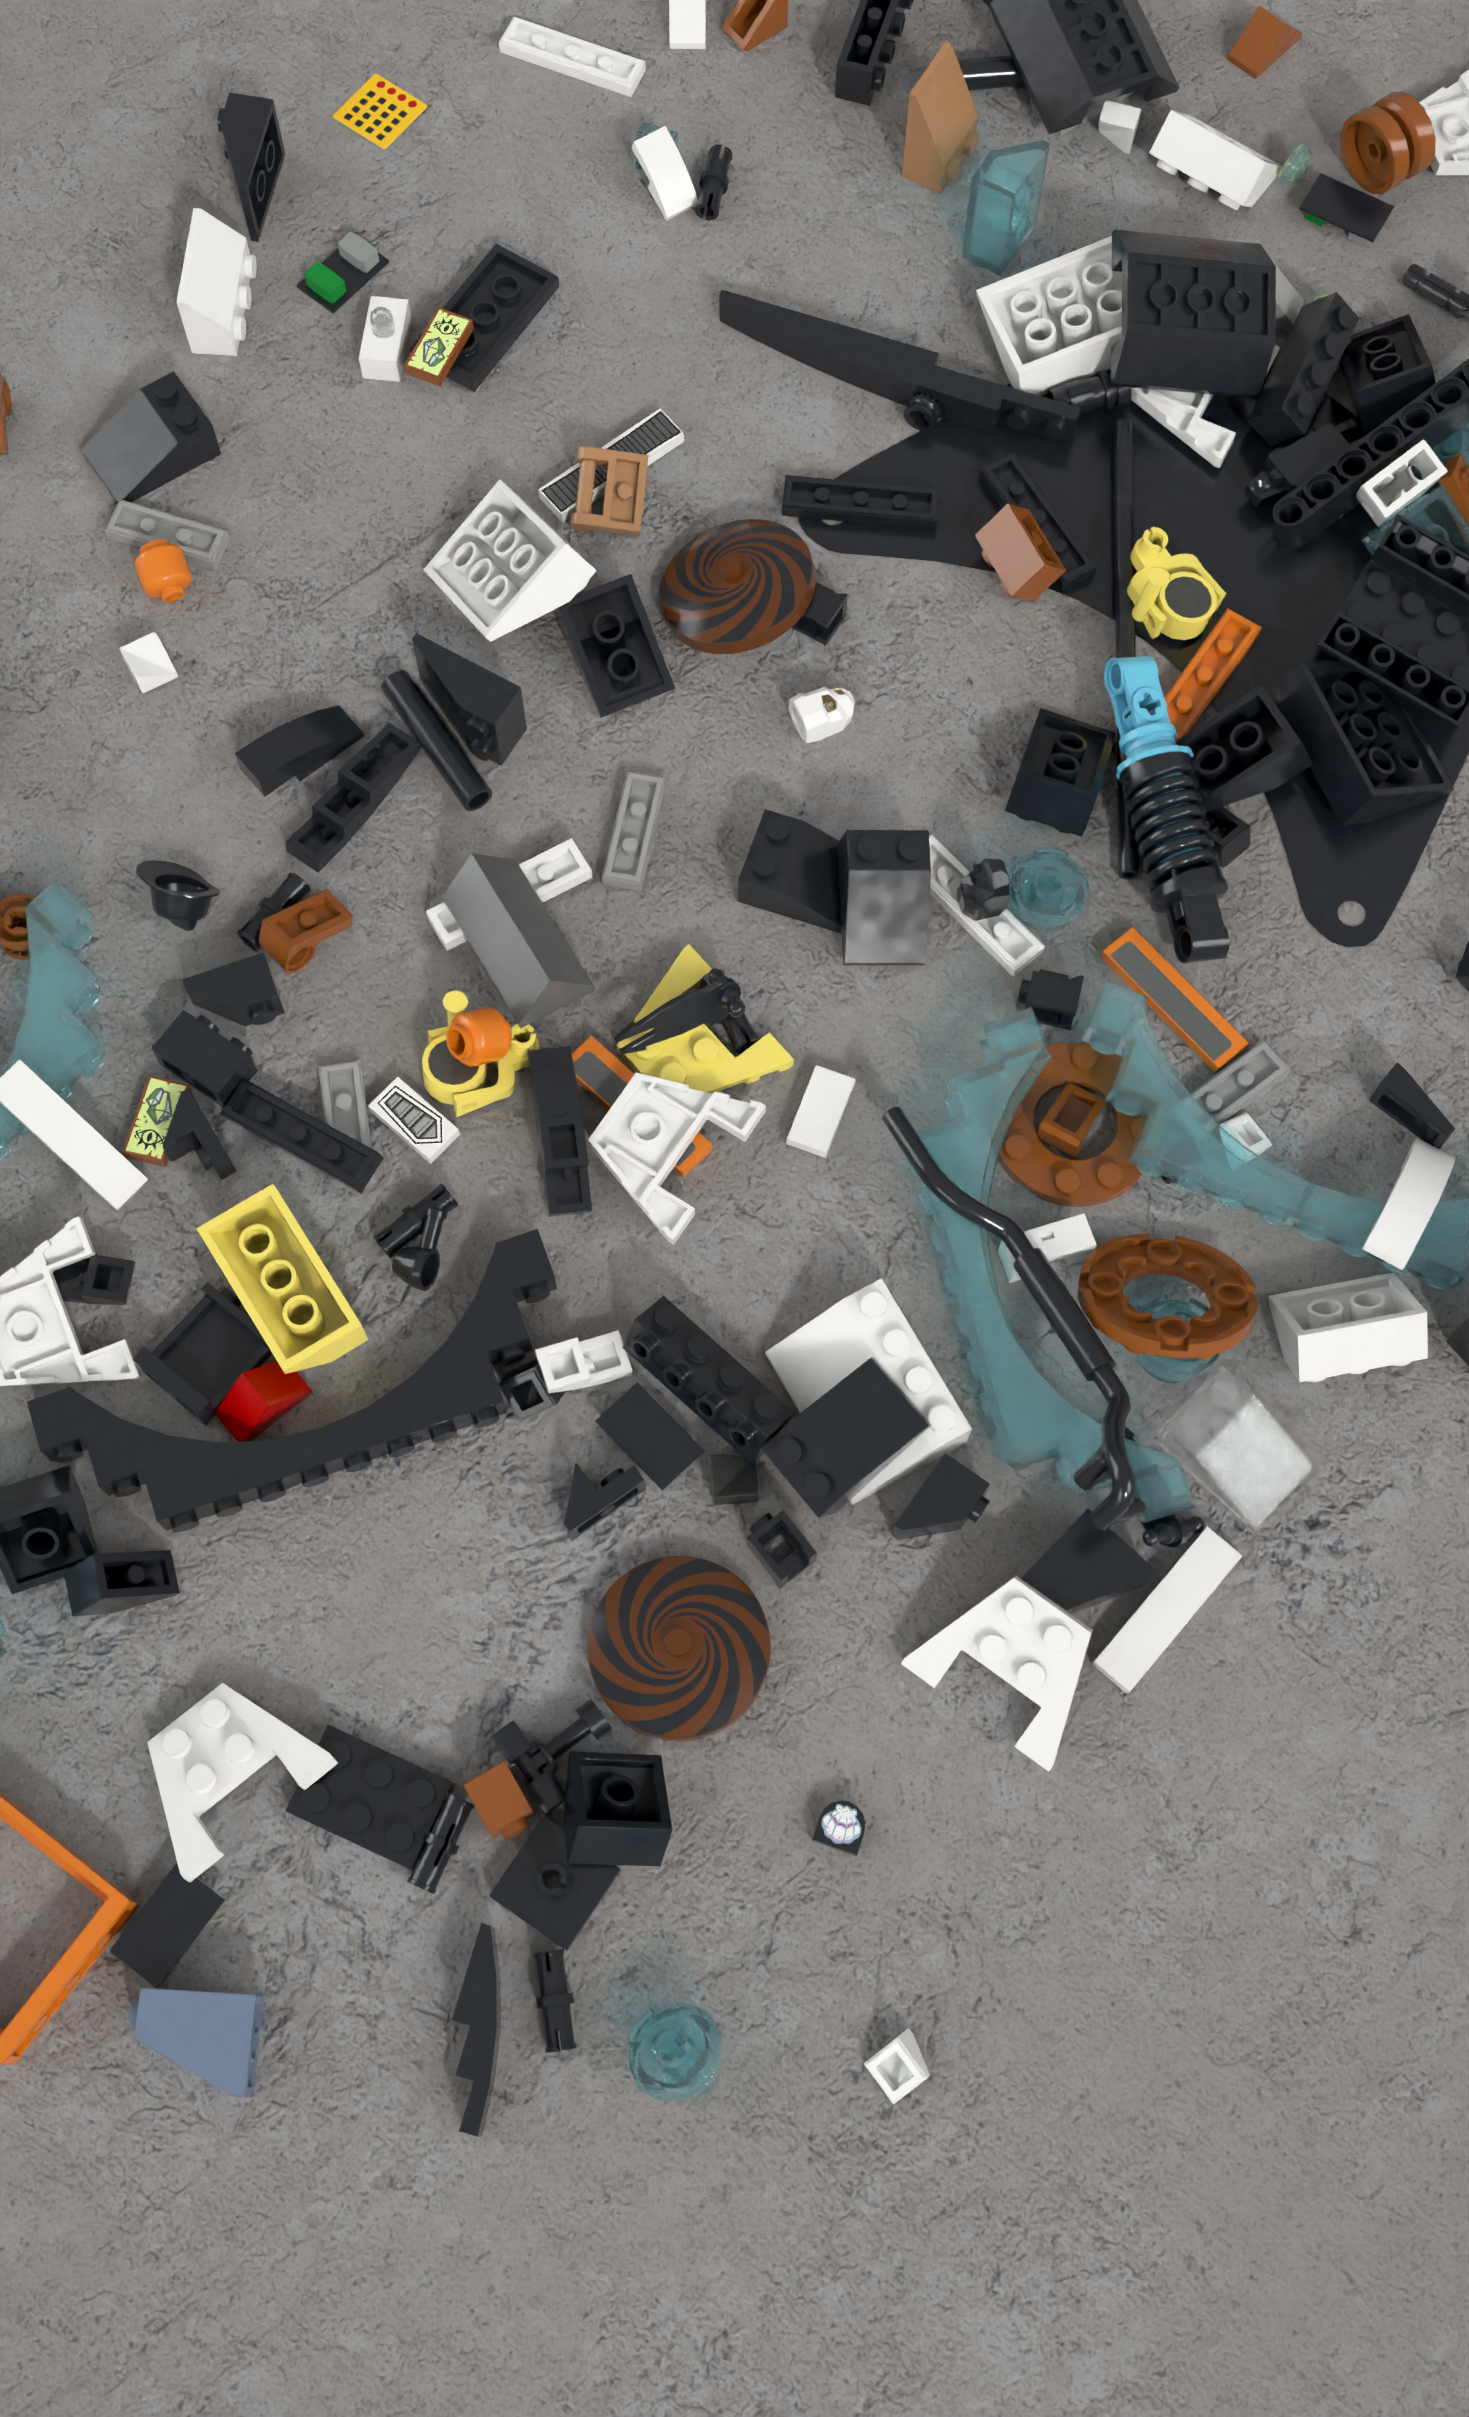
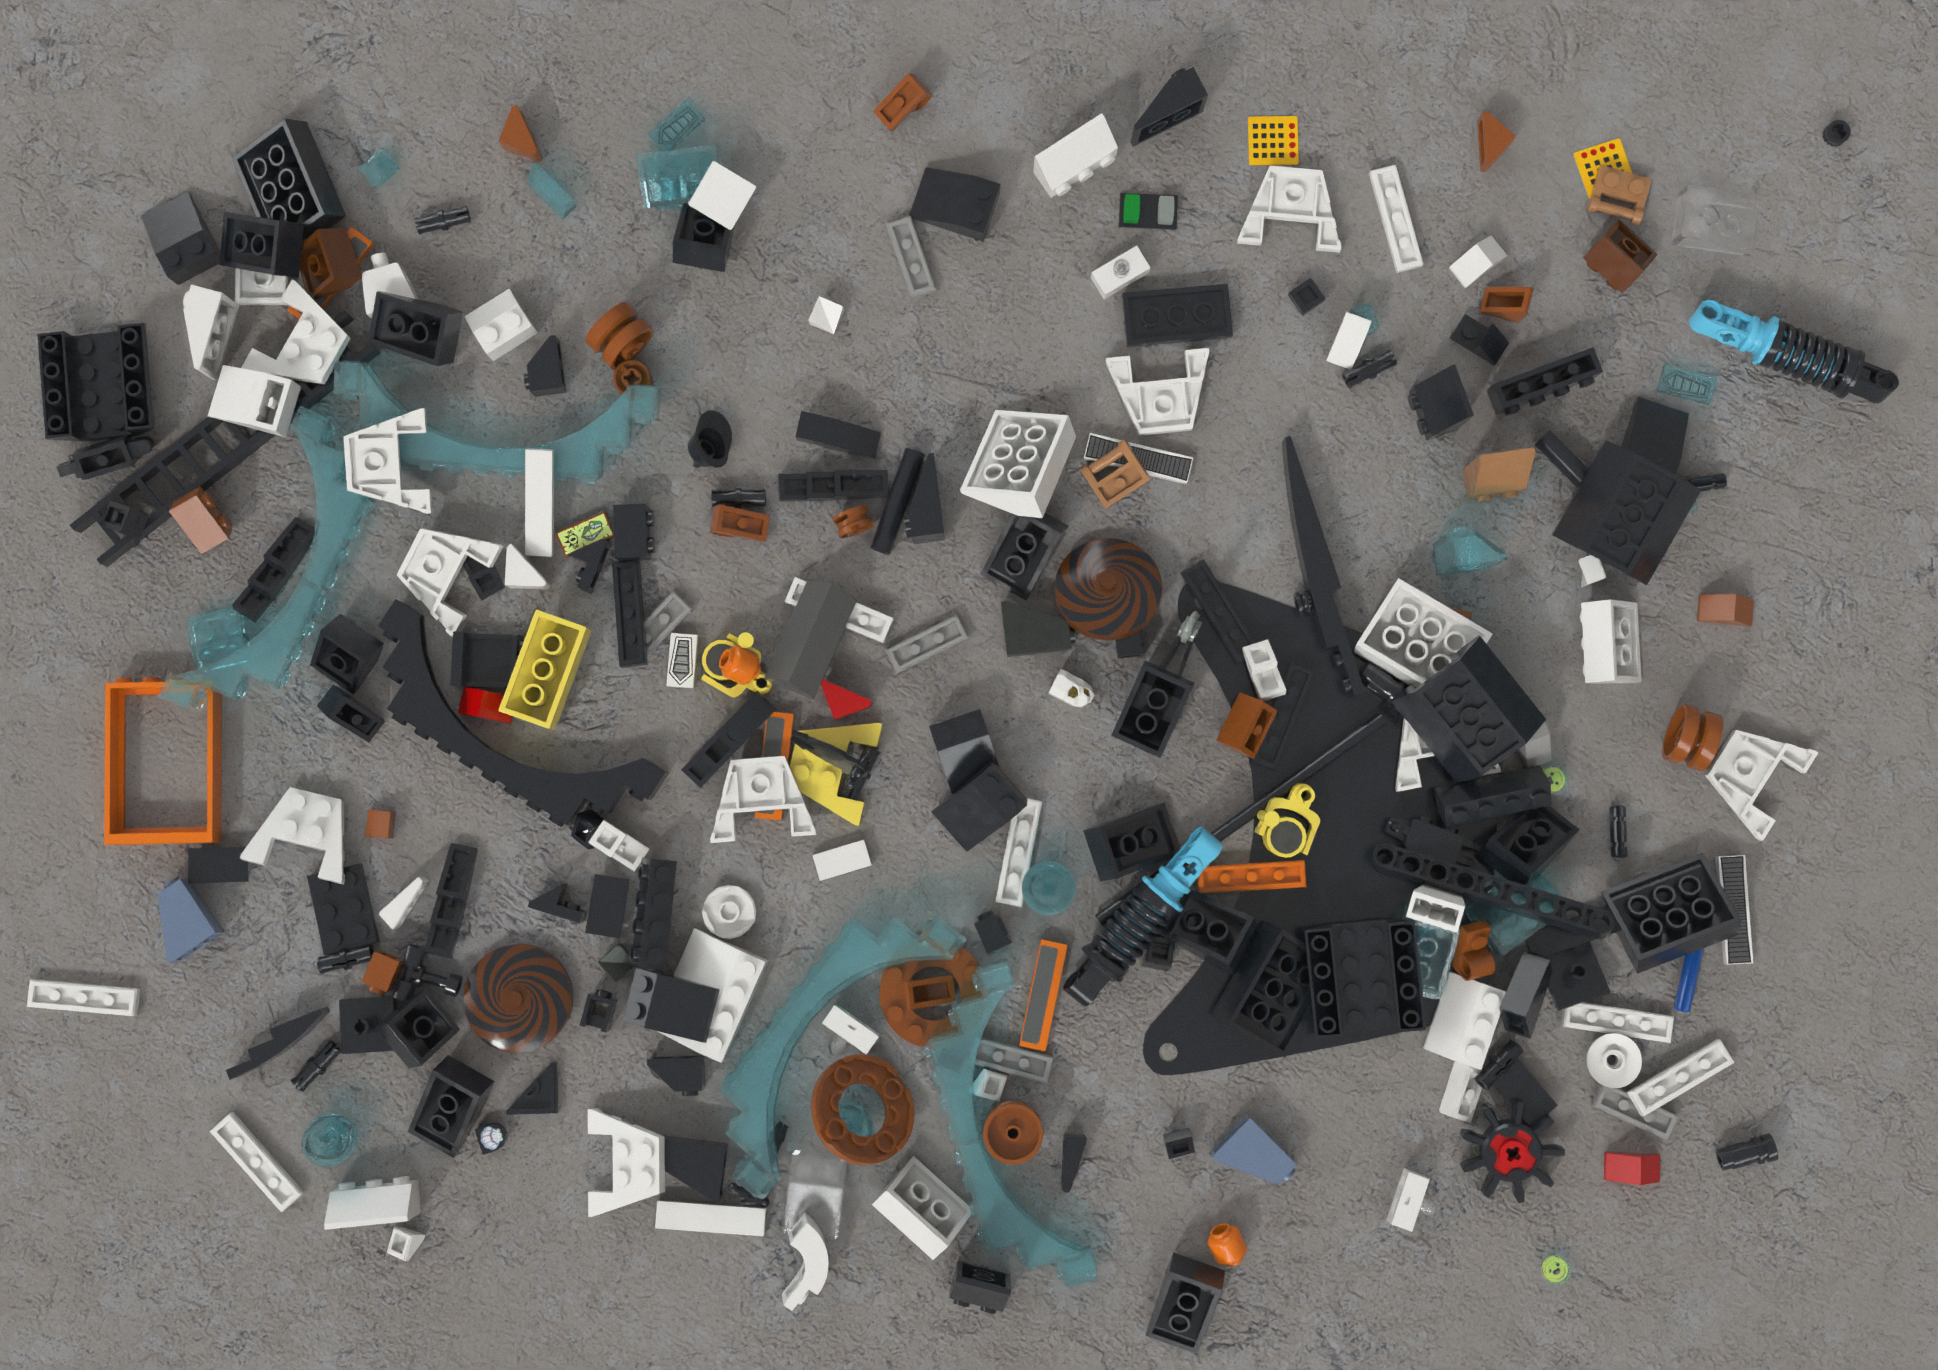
camera: 55 degrees right, 15 degrees up
(137, 1225) = (521, 572): none -> white slope
(163, 570) = (883, 277): orange head -> none
(186, 2283) = (83, 997): none -> white tile
(238, 991) = (681, 520): black slope -> none
(298, 1658) = (380, 824): none -> dark orange slope
(412, 1222) = (629, 705): black pin -> none
(417, 799) = (853, 521): none -> dark orange wheel
(421, 1264) = (609, 725): black bar -> none
(432, 1717) = (401, 905): none -> white slope
(439, 346) = (1132, 309): tile -> none
(463, 123) = (1296, 197): none -> white wing
(479, 1638) = (451, 900): none -> black slope
(567, 402) = (1161, 404): none -> white wing
(580, 185) = (1306, 296): none -> black plate
(622, 2199) = (257, 1161): none -> white tile
(623, 965) = (842, 701): none -> red slope
(717, 701) = (1033, 631): none -> pearl dark grey slope
(756, 1849) = (450, 1105): none -> black slope
(775, 67) = (1479, 339): none -> black slope
(778, 1293) = (729, 911): none -> white tile
(810, 2058) = (373, 1203): none -> white slope
(815, 120) = (1440, 404): none -> black slope
(833, 1717) = (540, 1096): none -> black tile
(907, 606) = (1158, 697): none -> black slope
(962, 497) = (1263, 670): none -> white slope
(984, 890) = (1022, 854): black rock -> none
(1064, 1316) = (809, 1065): black piece -> none
(1296, 163) = (1644, 691): clear light blue tile -> none
(1327, 1510) = (812, 1275): none -> white arch
(1328, 1140) = (1012, 1115): none -> dark orange wheel
(1346, 209) = (1635, 741): black piece -> none
(1410, 1204) = (1010, 1197): white slope -> none

